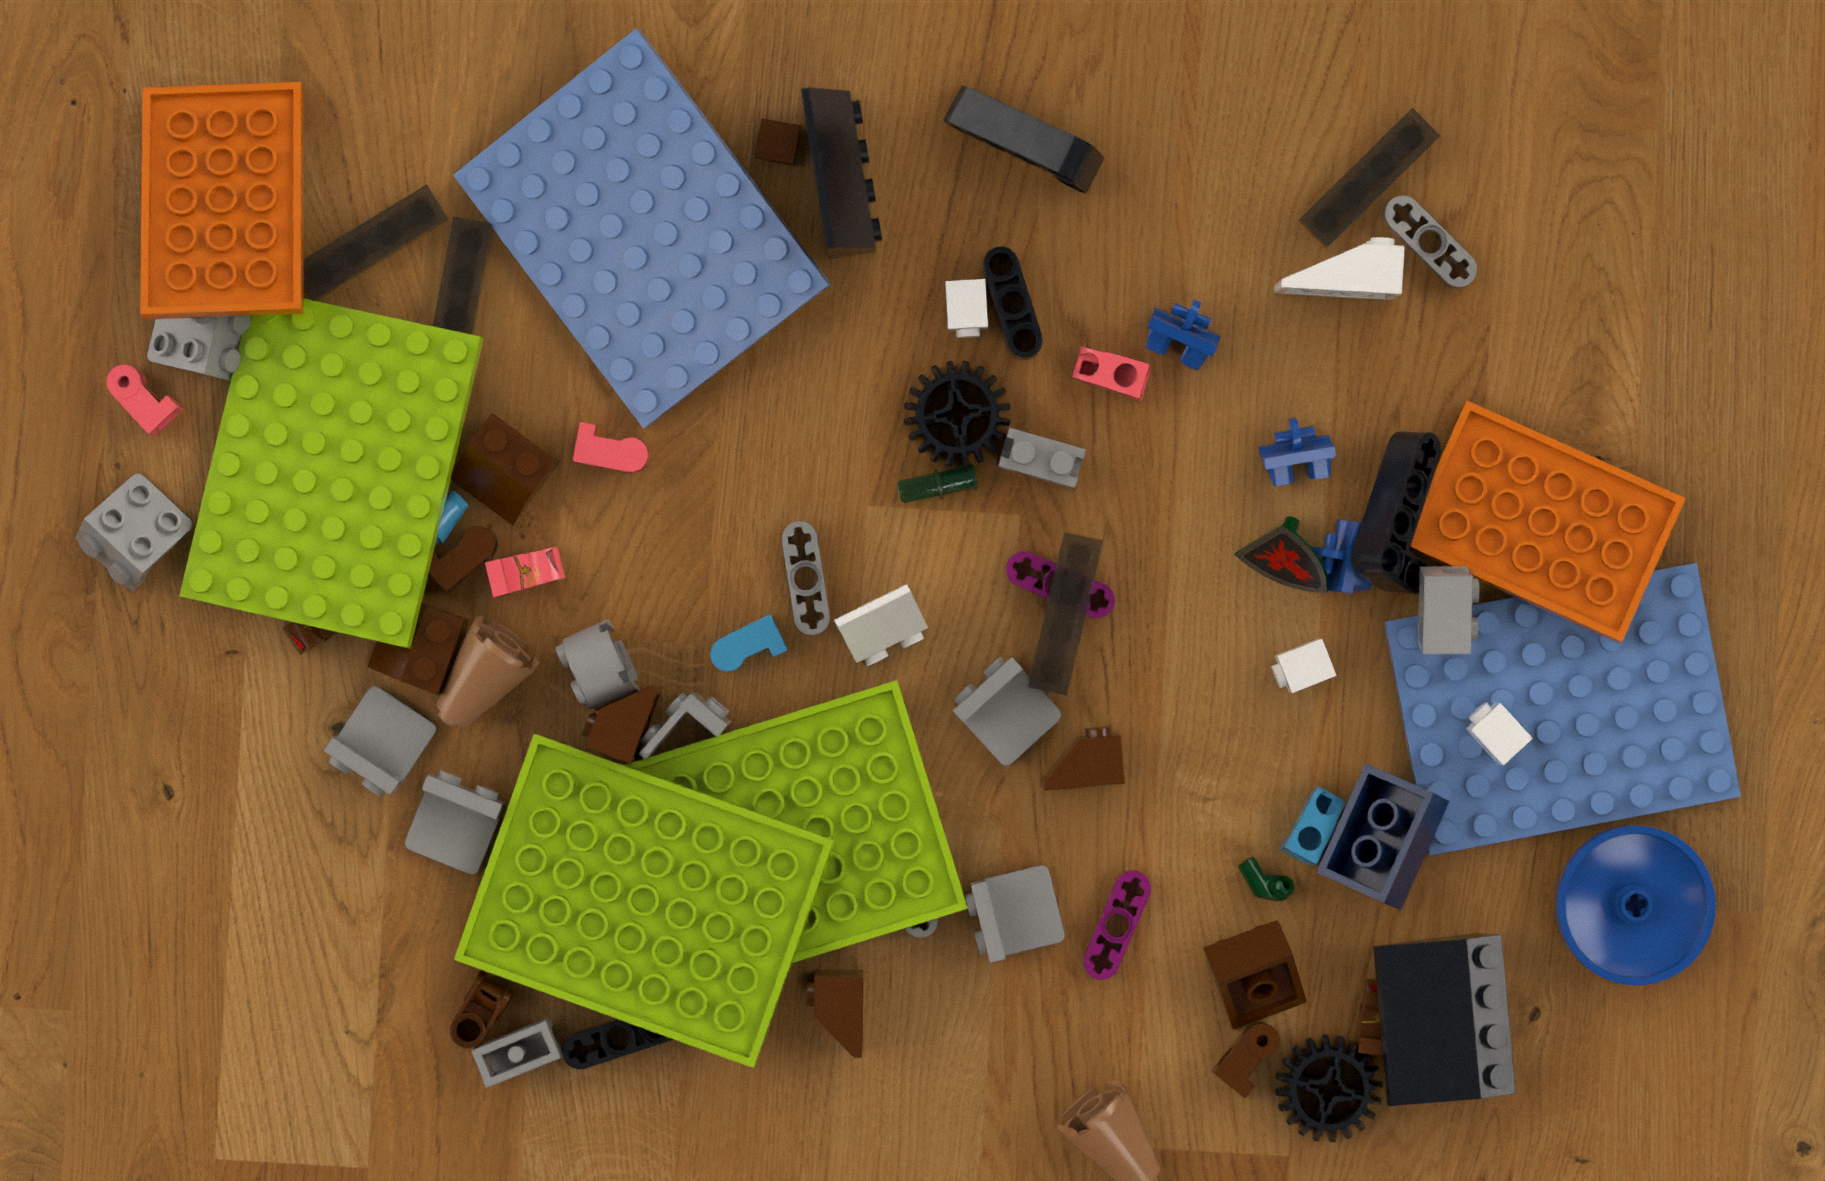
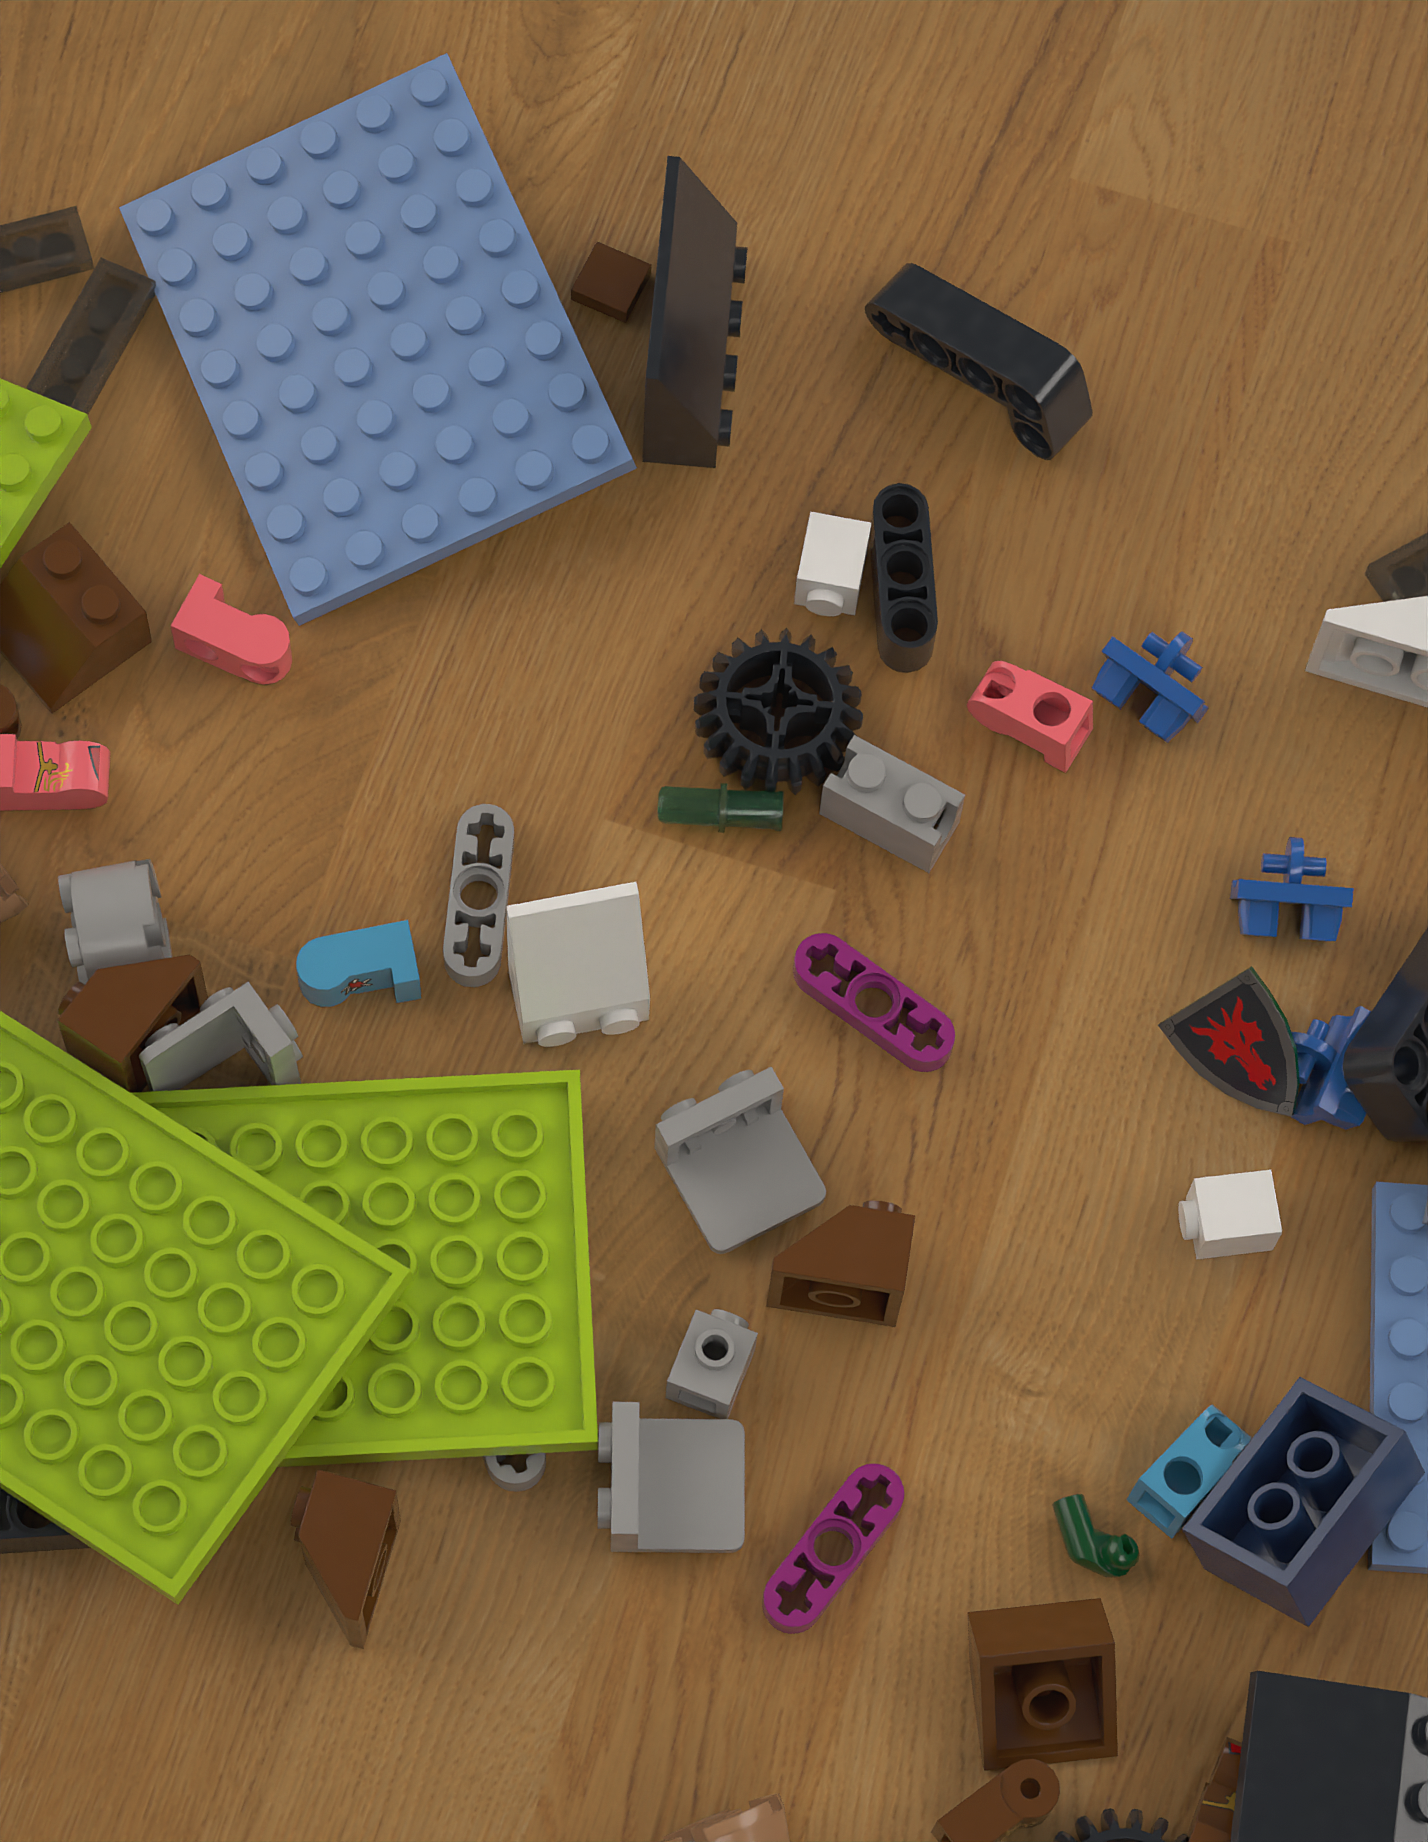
camera: 15 degrees right, 20 degrees down
(1020, 835) = (712, 1363): none -> light grey brick
(1065, 613) = (871, 1033): clear smoke plate -> none

